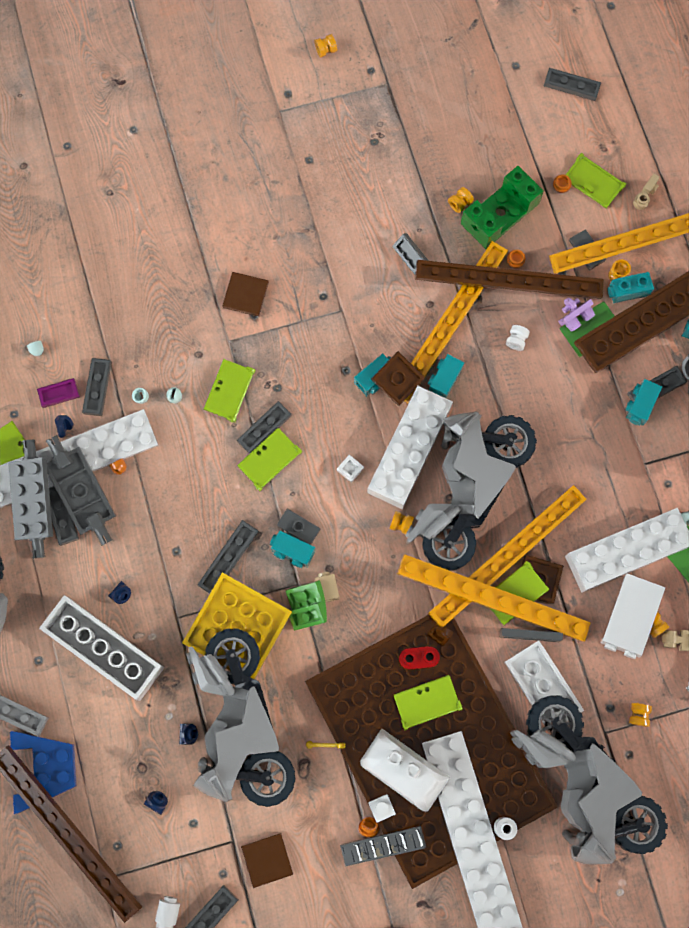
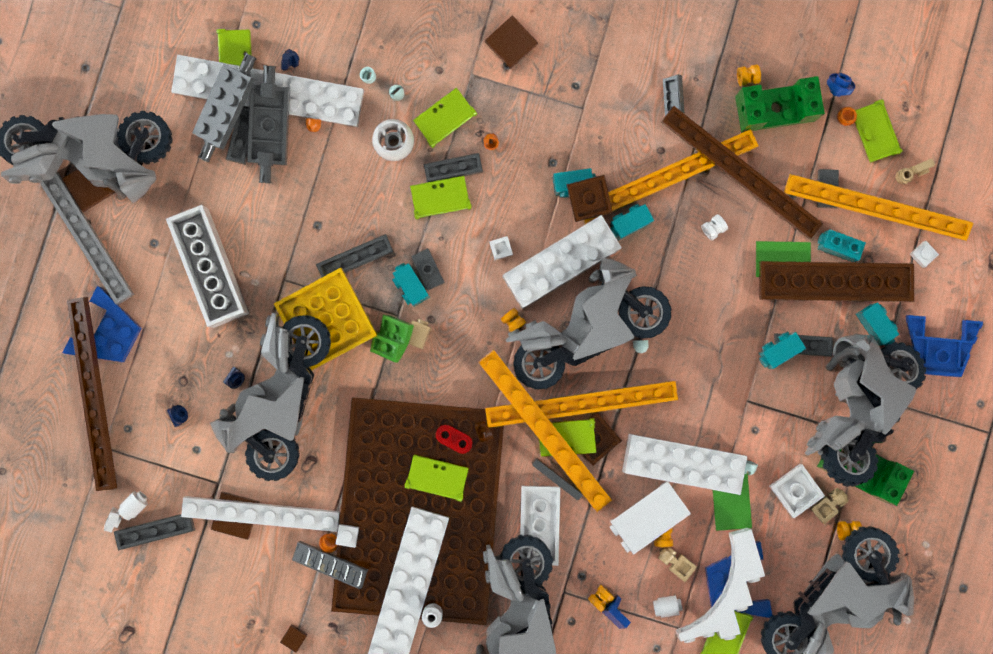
camera: 30 degrees right, 10 degrees up
(58, 393) = (302, 29): magenta tile -> none
(96, 387) = (337, 44): dark grey tile -> none
(120, 593) = (250, 231): dark blue plate -> none
(202, 447) = (389, 152): none -> white wheel
(286, 383) = (492, 146): none -> orange hinge
(289, 842) = (260, 513): none -> white plate
(309, 744) = (324, 449): yellow hinge -> none
(404, 770) = (381, 519): white hips -> none
(516, 258) = (761, 157): orange plate -> none
(524, 474) = (640, 345): none -> light aqua hinge
(539, 162) = (840, 84): none -> blue plate
(570, 319) = (787, 239): lavender hips -> none
(572, 84) = (919, 31): dark grey tile -> none
(621, 267) = (844, 222): light orange wheel -> none
(663, 722) = (615, 615): none -> blue tile

